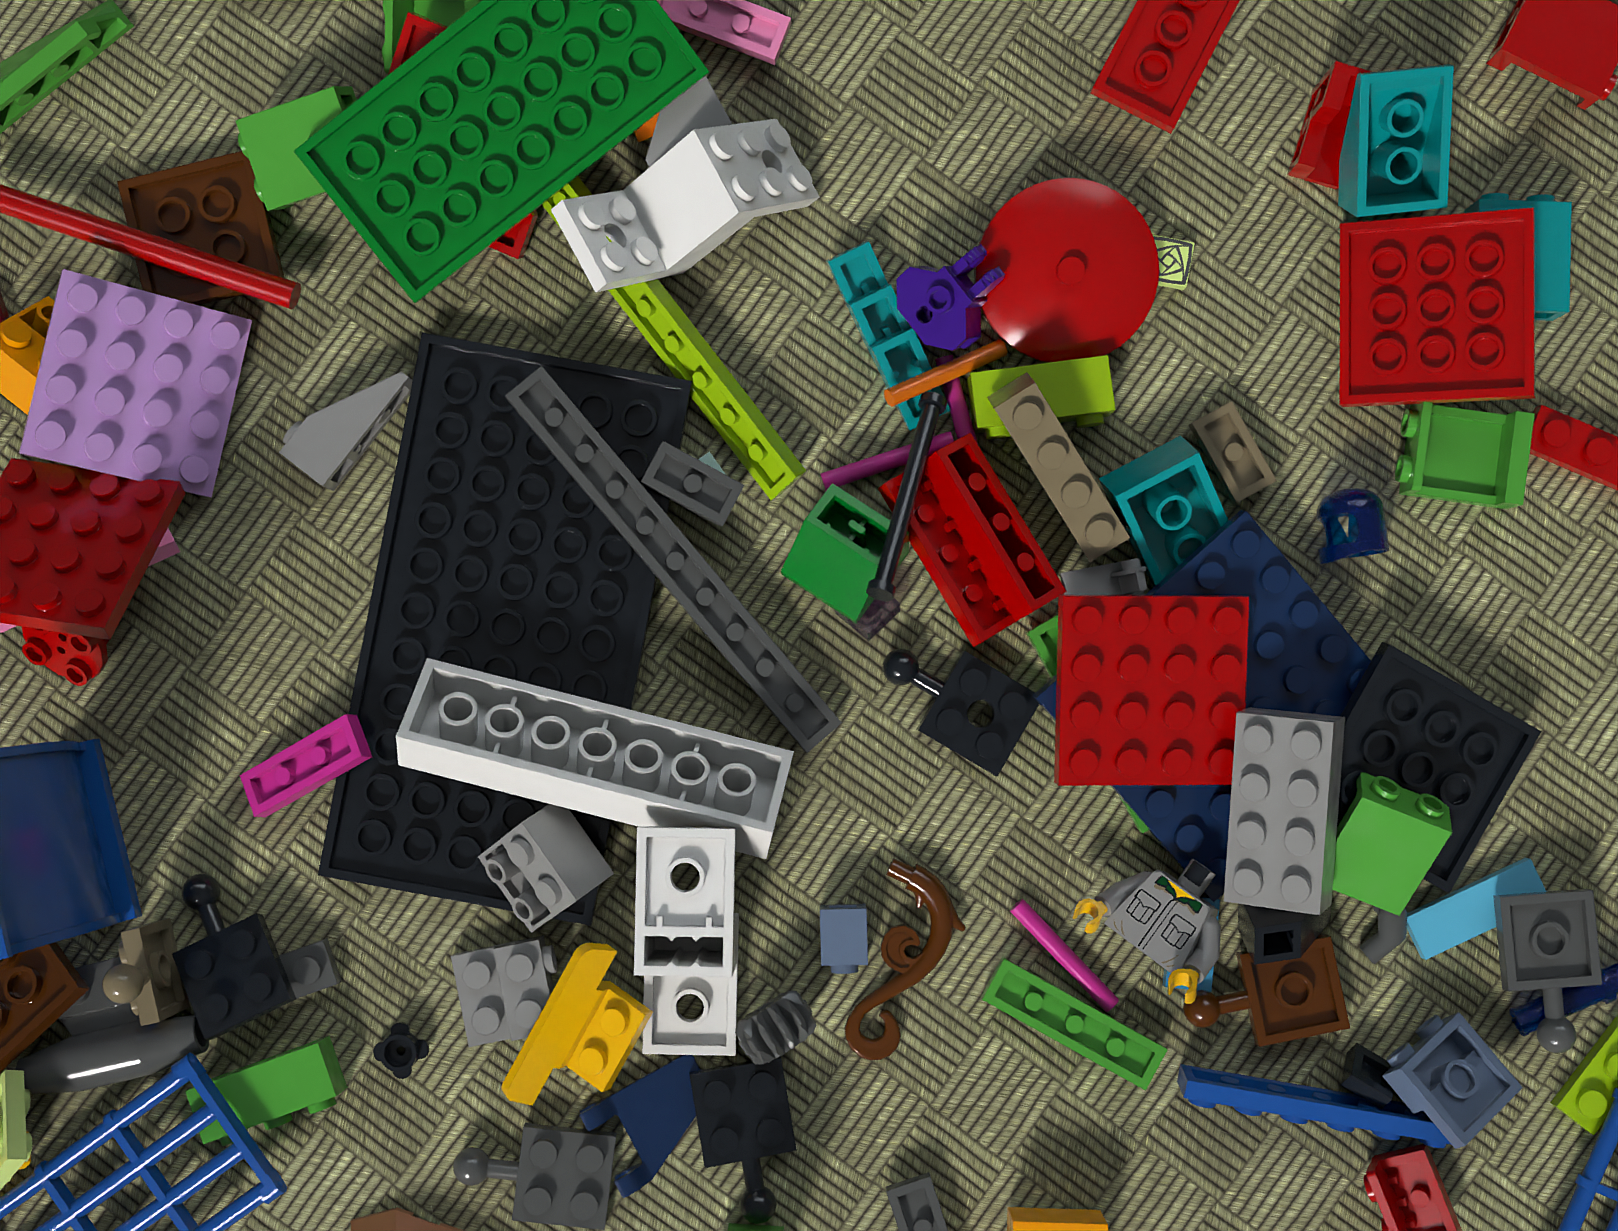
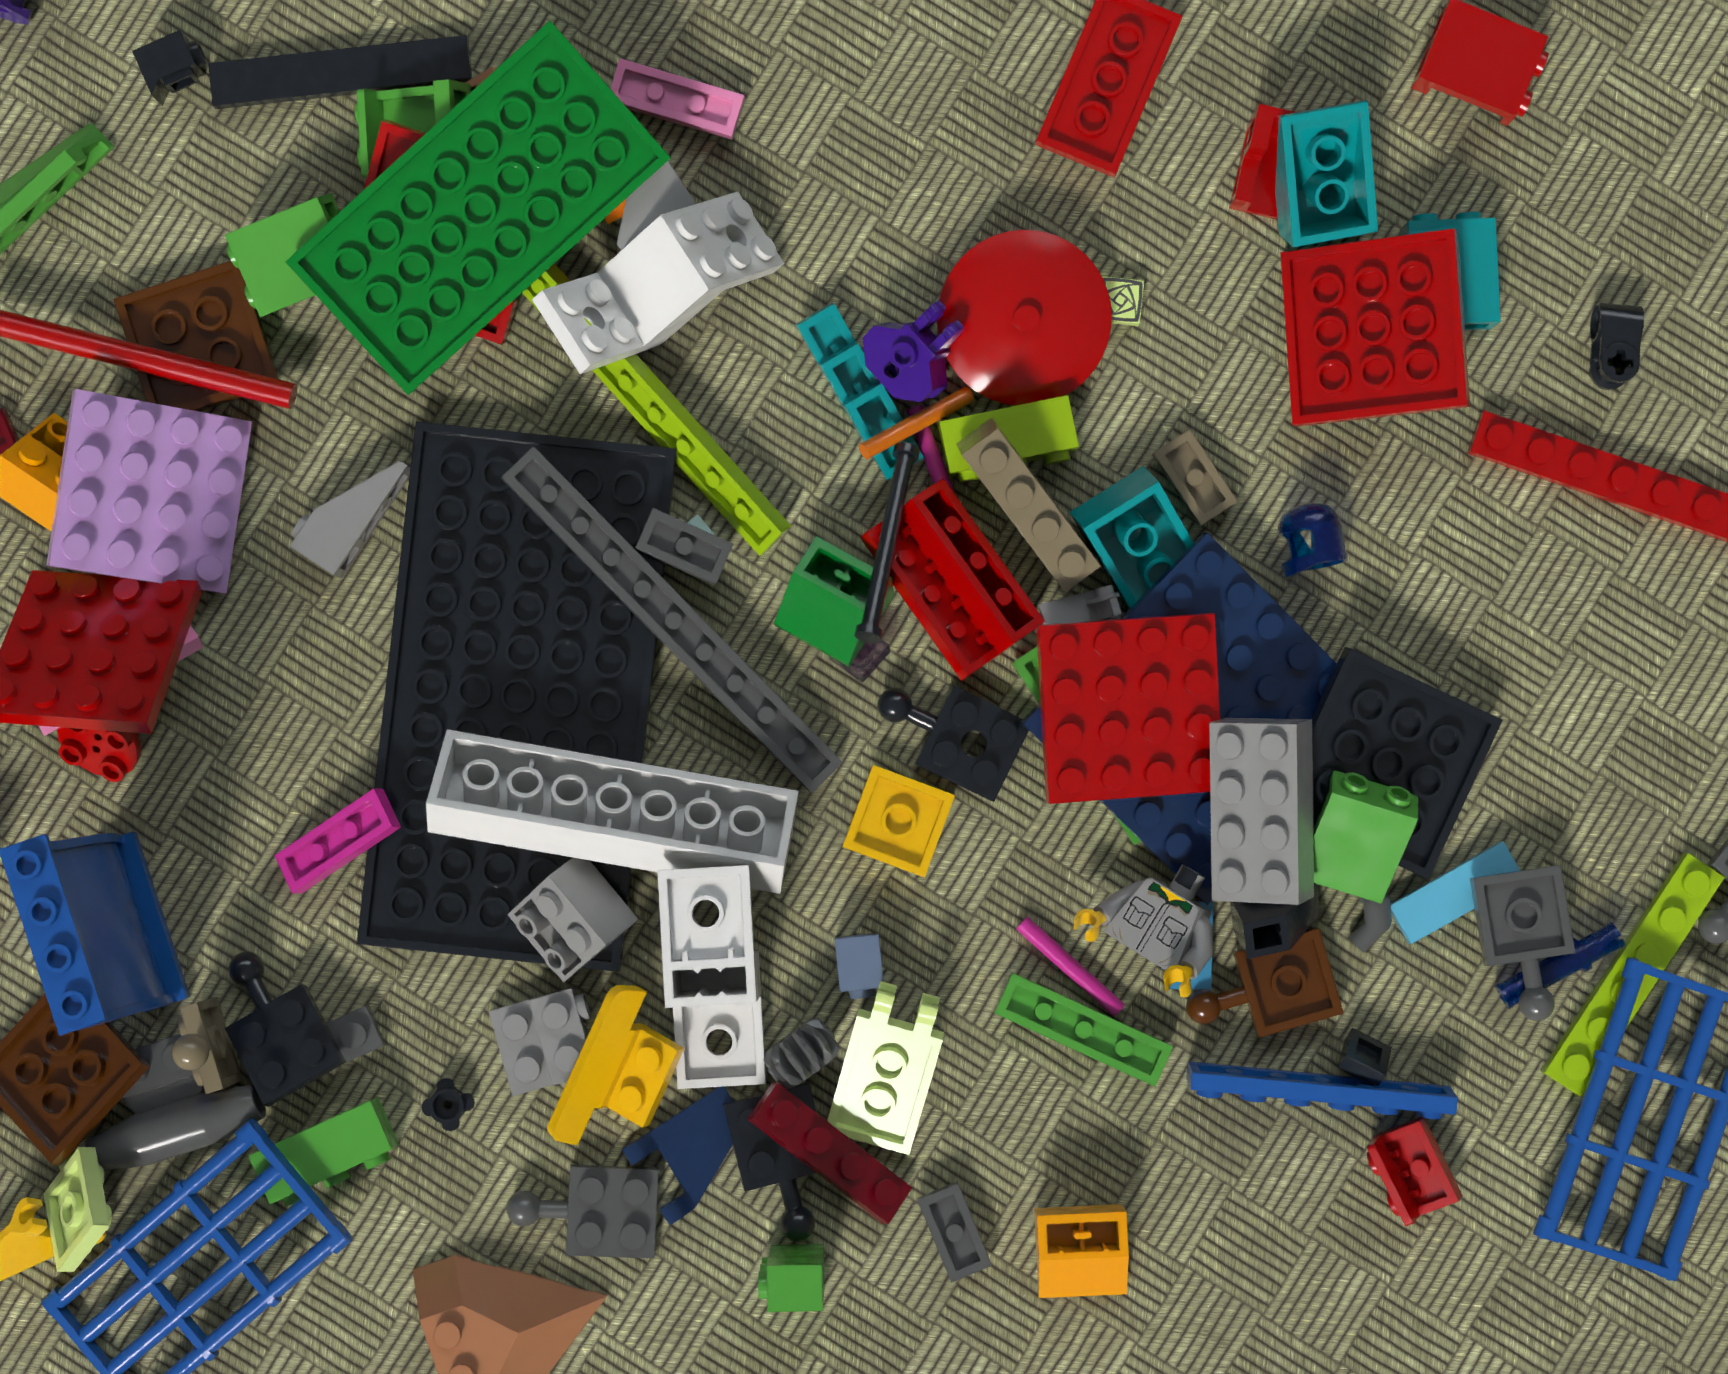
camera: 10 degrees left, 0 degrees up
(797, 1134) = (829, 1153): none -> dark red plate
(863, 1055) = (887, 1073): none -> yellowish green tile
(878, 463) = (859, 513): dark pink bar -> none
(895, 789) = (898, 821): none -> yellow plate
(912, 970) = (953, 941): reddish brown plant -> none
(1451, 1078) = (1440, 1051): sand blue plate -> none
(1465, 455) = (1413, 464): bright green panel -> none

